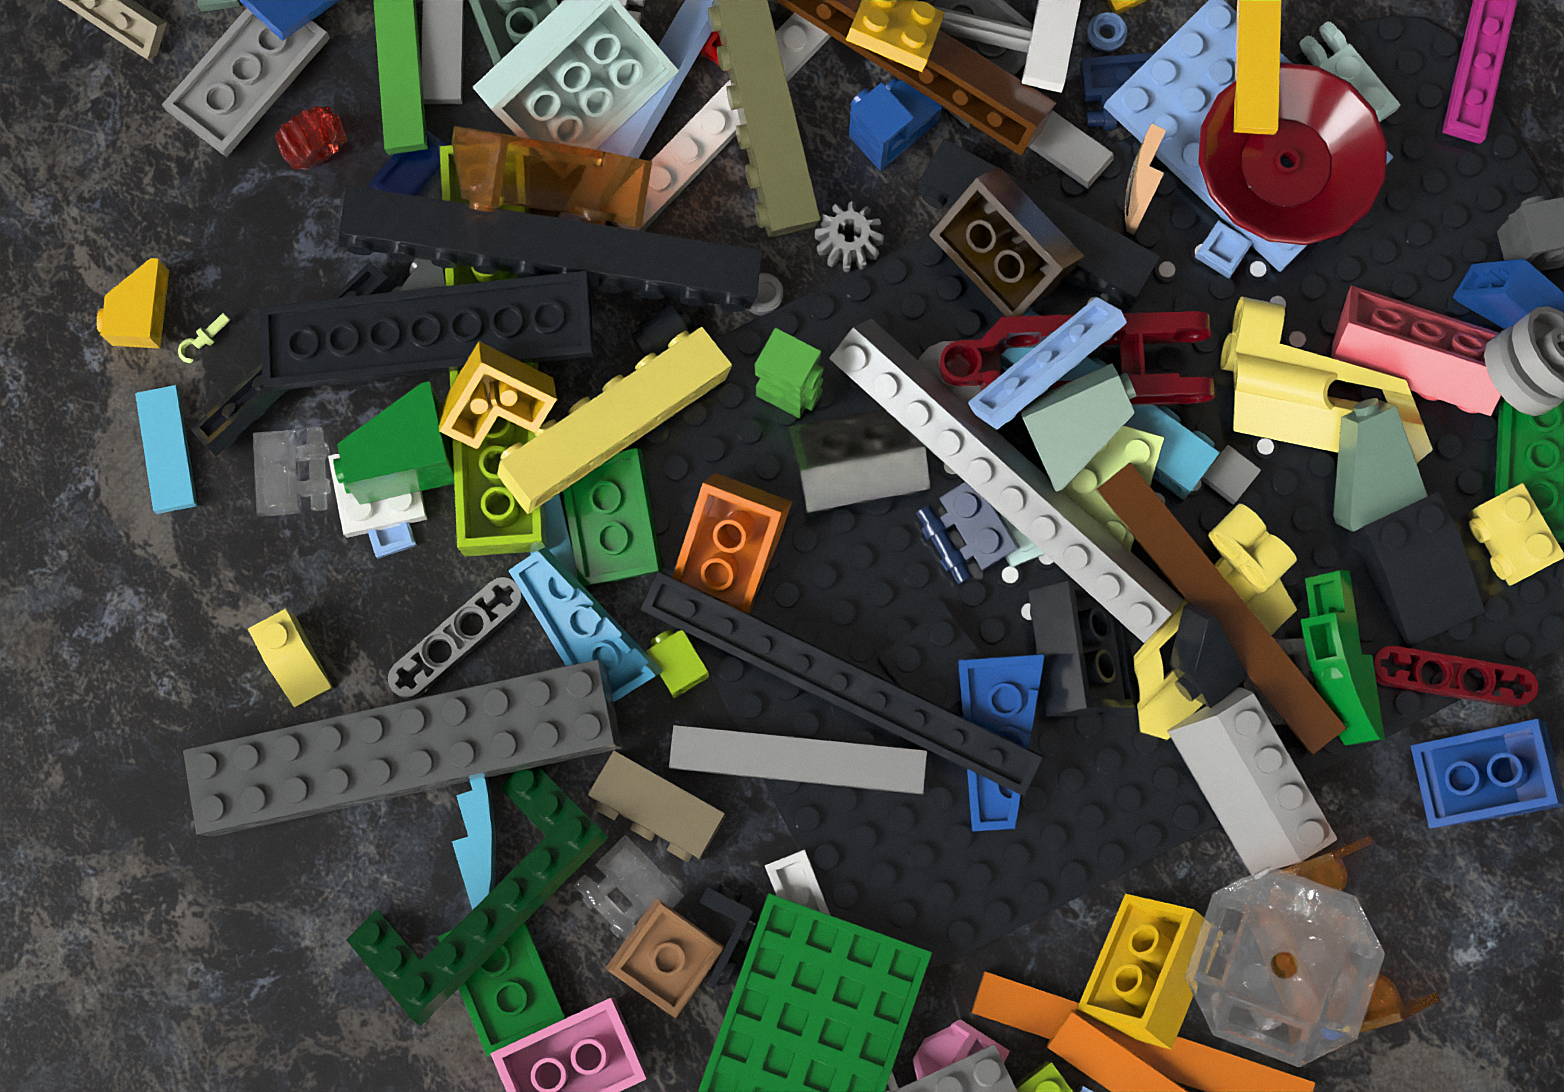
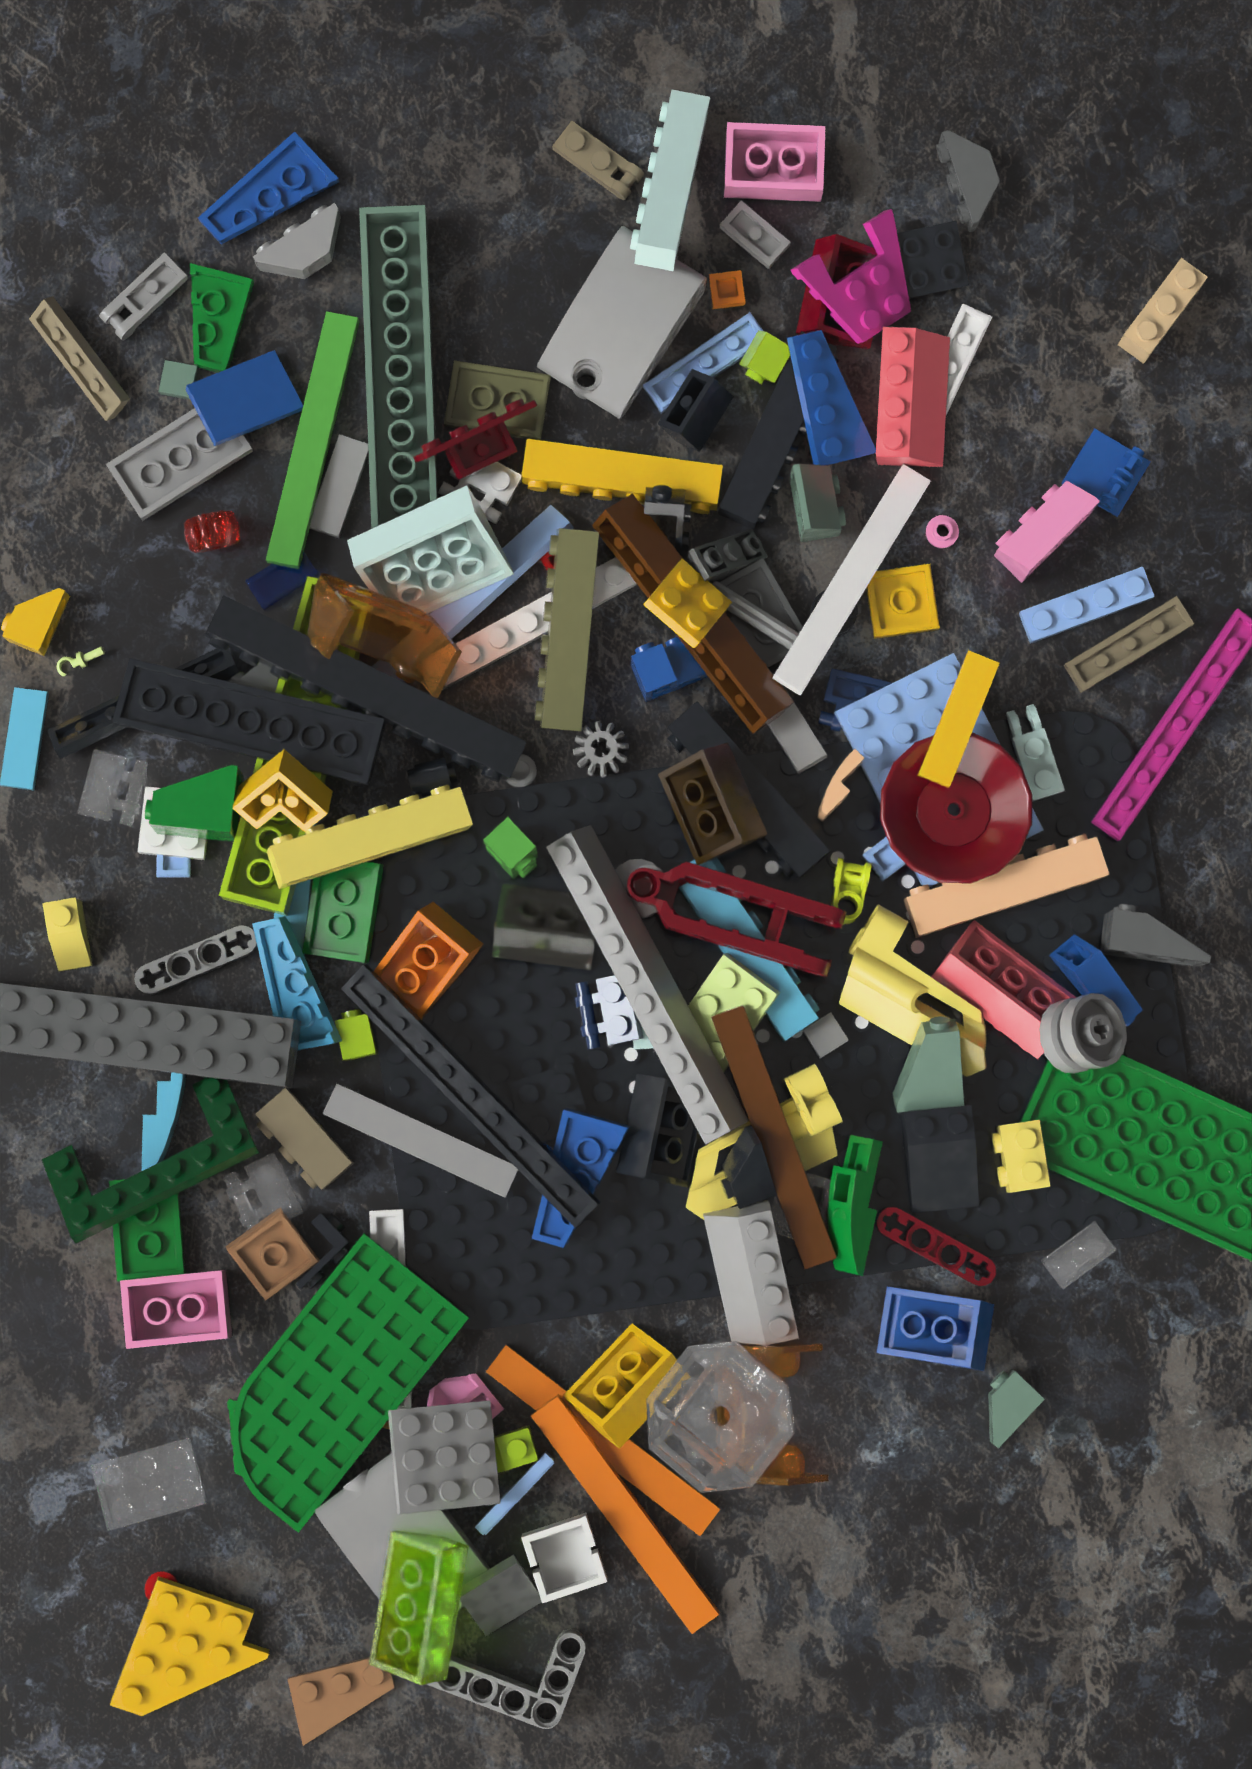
camera: 15 degrees right, 5 degrees up
(1047, 363) = (705, 910): light blue plate -> none
(1078, 420) = (712, 961): slope -> none
(1111, 22) = (861, 641): medium blue plate -> none
(1197, 290) = (851, 883): none -> neon yellow piece
(1392, 223) = (1014, 885): none -> light nougat brick

